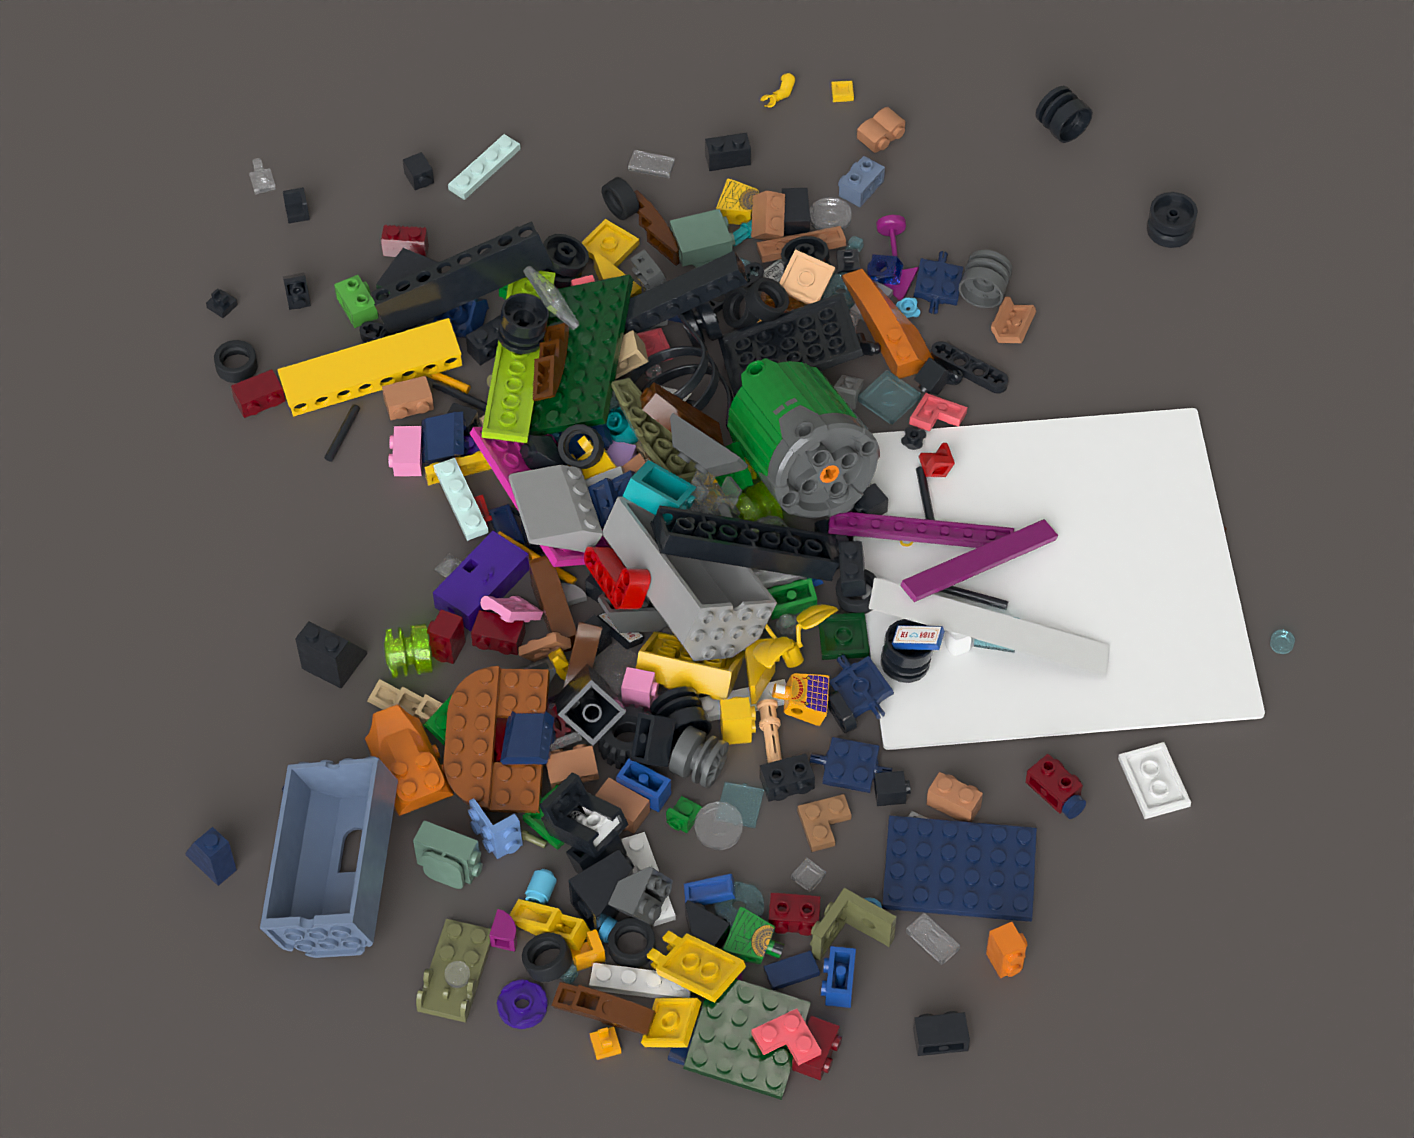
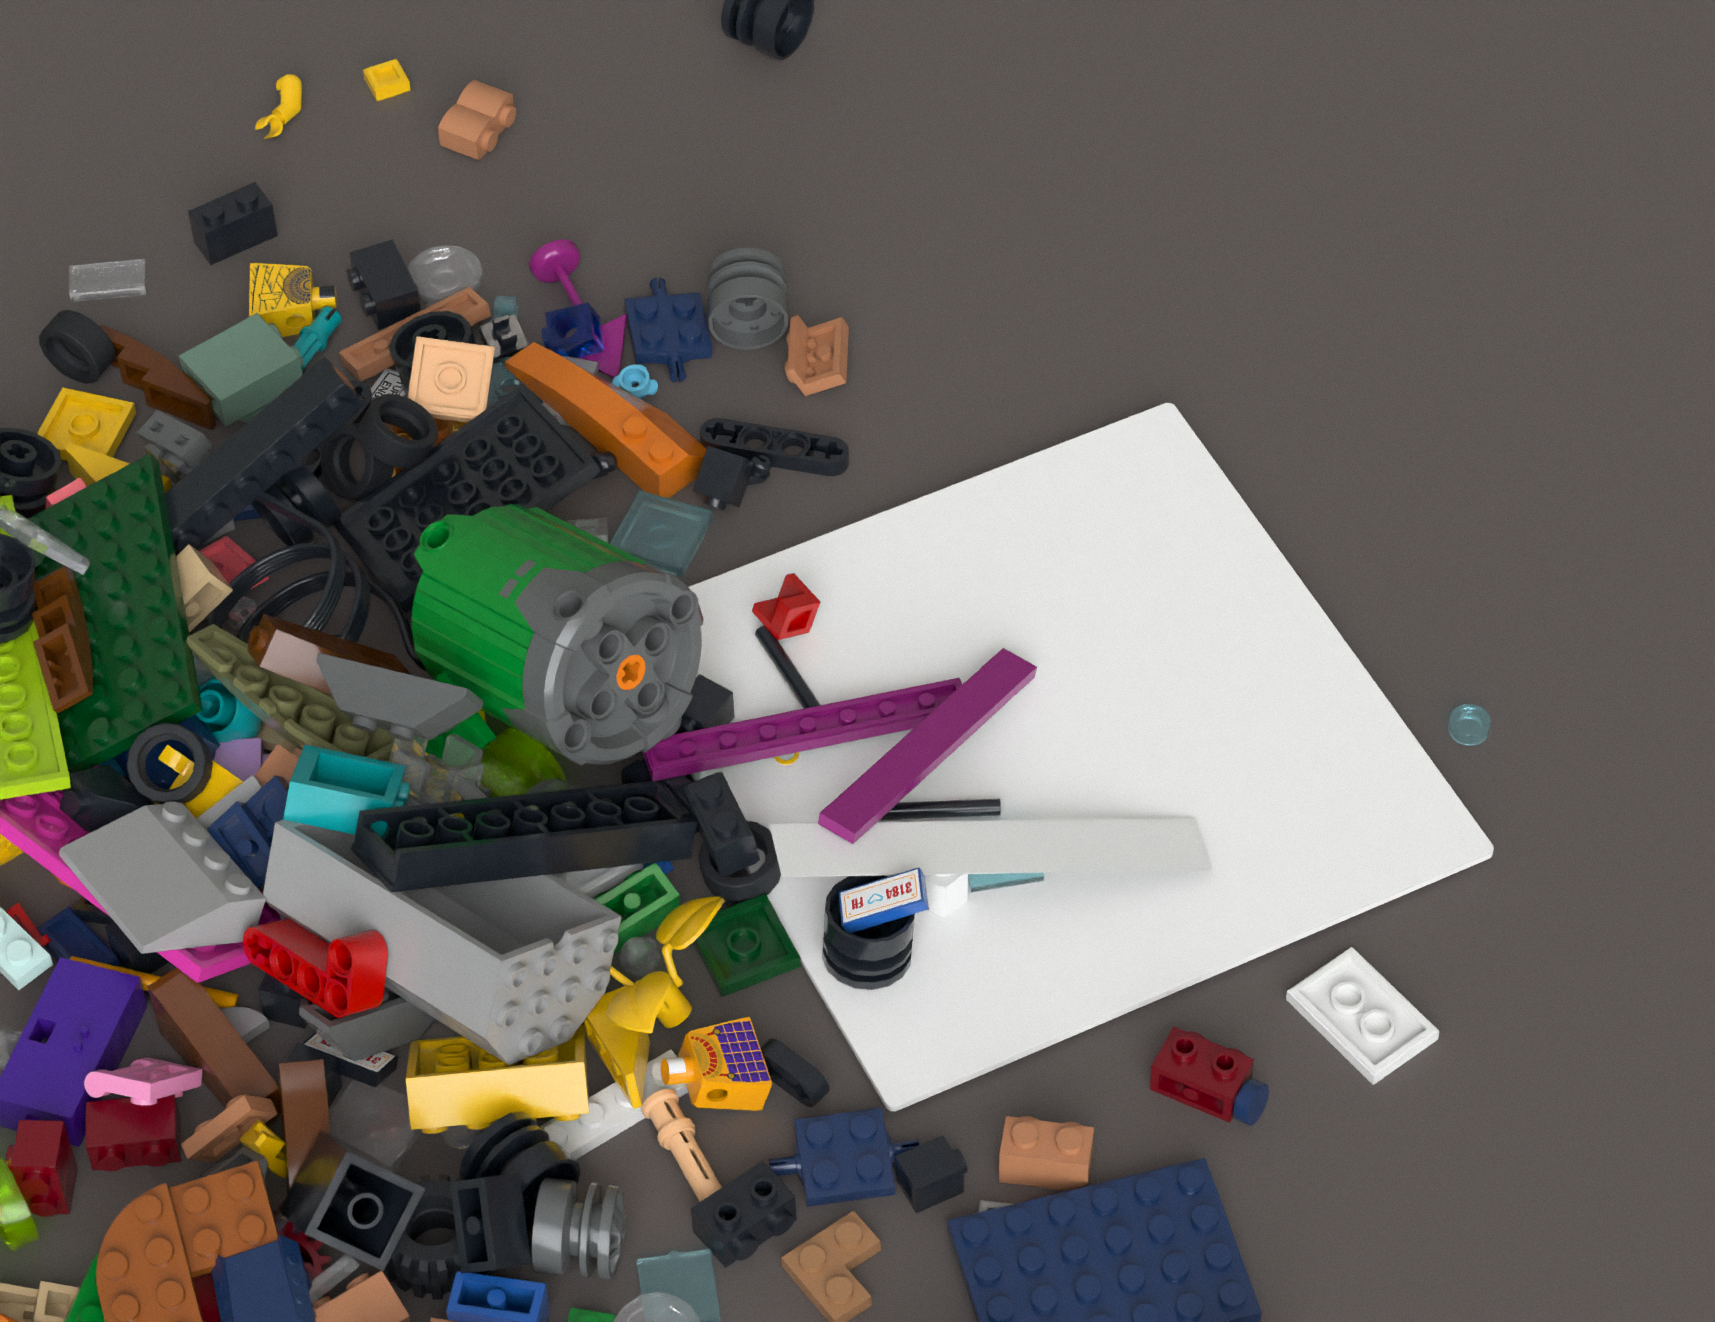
camera: 20 degrees left, 5 degrees down
(639, 688) = (429, 1143): bright pink brick -> none
(737, 720) = (620, 1143): yellow brick -> none
(768, 215) = (343, 302): nougat brick -> none
(861, 181) = (475, 207): sand blue brick -> none
(861, 686) = (811, 1017): dark blue plate -> none
(913, 443) = (731, 585): black plate -> none
(936, 408) = (744, 528): coral plate -> none
(1172, 219) = (1008, 124): black wheel -> none

